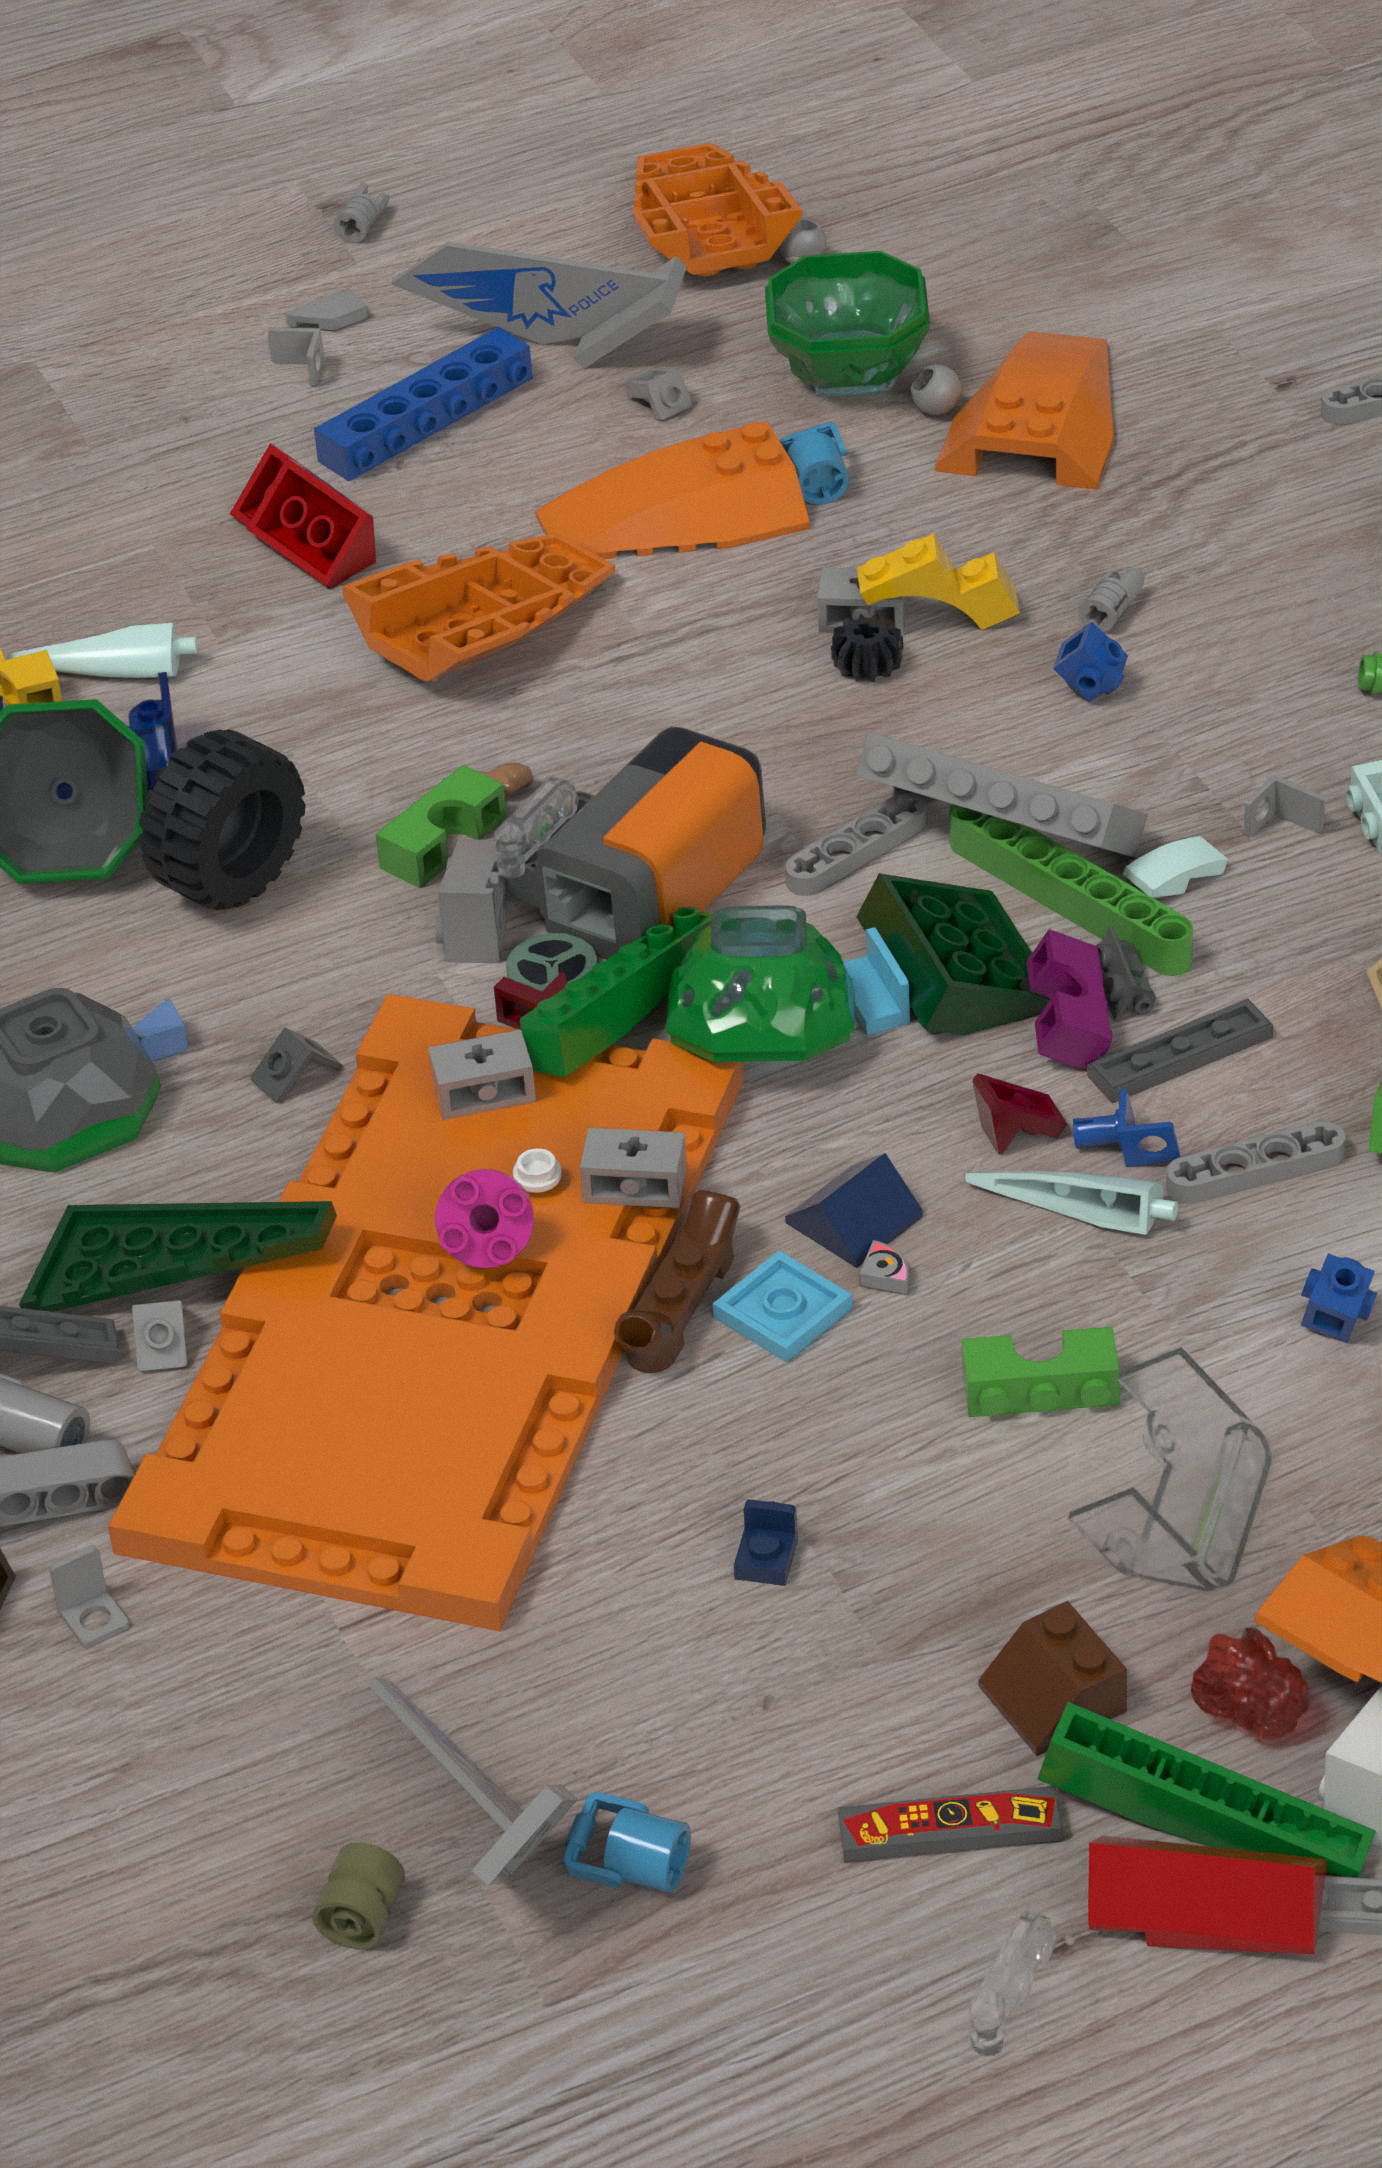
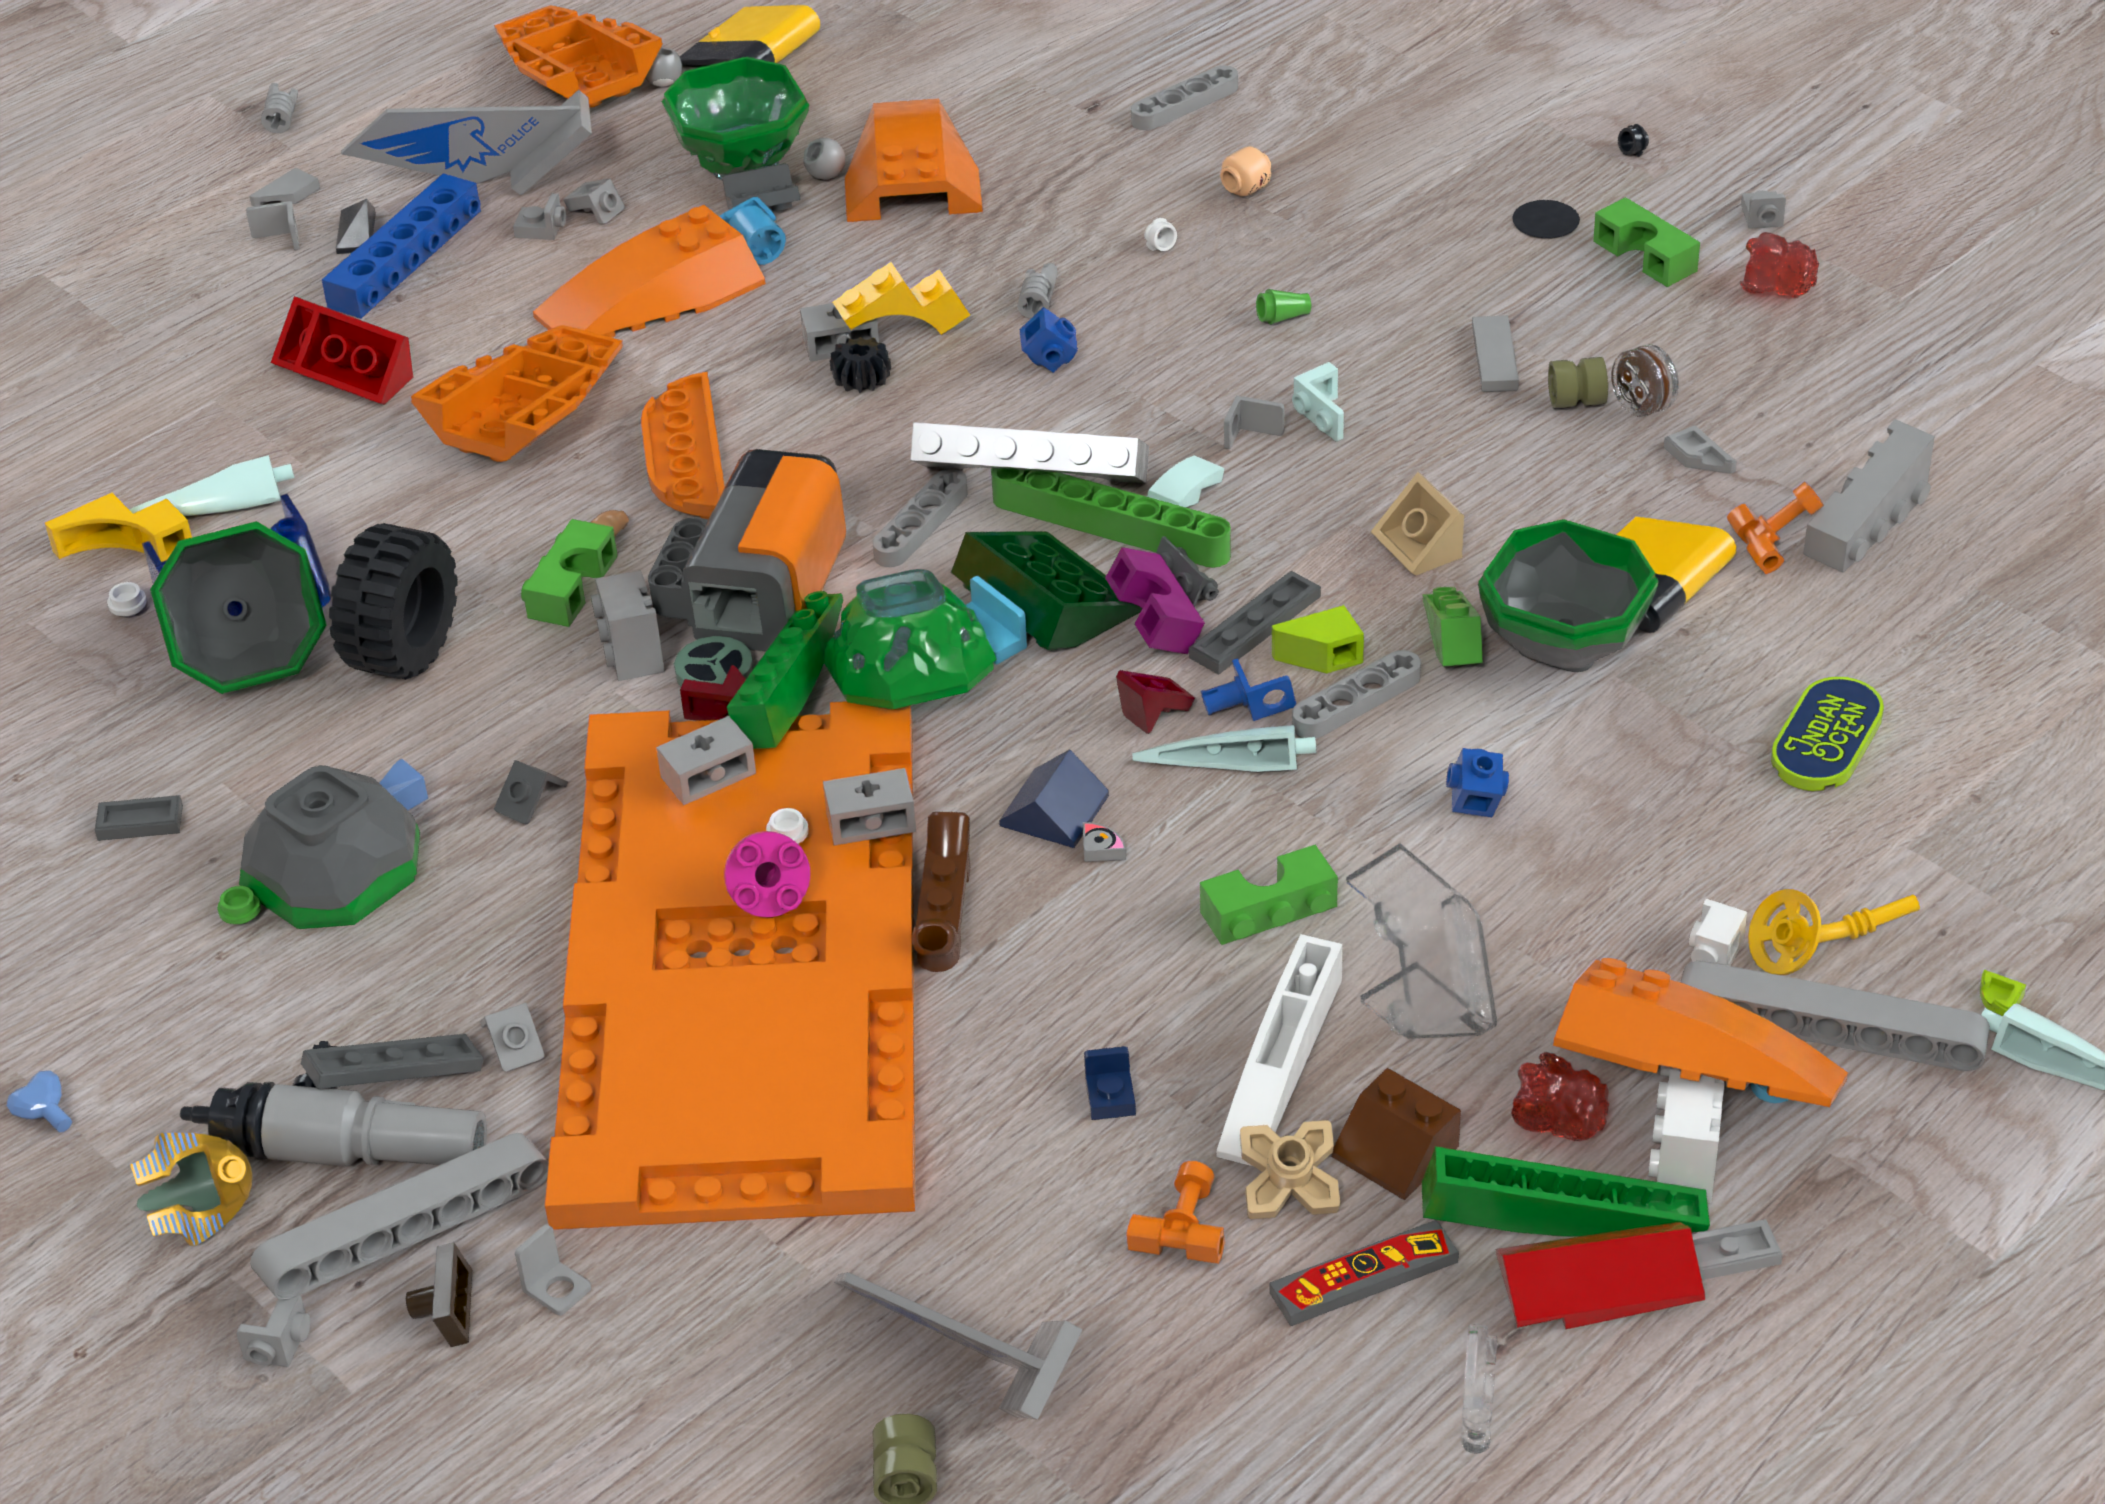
camera: 20 degrees left, 0 degrees up
(140, 1247) = (462, 969): dark green wing -> none
(388, 367) = (355, 226): none -> slope
(533, 825) = (668, 550): clear plate -> none
(588, 404) = (541, 222): none -> light grey bracket
(629, 697) = (683, 447): none -> orange plate
(639, 1847) = (1129, 1359): dark azure piece -> none
(768, 1720) = (1179, 1225): none -> orange bar
(782, 1306) = (1030, 891): medium azure tile -> none
(853, 410) = (768, 183): none -> dark grey bracket
(916, 1688) = (1289, 1168): none -> tan plant
(926, 225) = (756, 33): none -> yellow door
(971, 1548) = (1284, 1040): none -> white slope
(1238, 1089) = (1319, 641): none -> lime slope
(1292, 566) = (1166, 237): none -> white plate

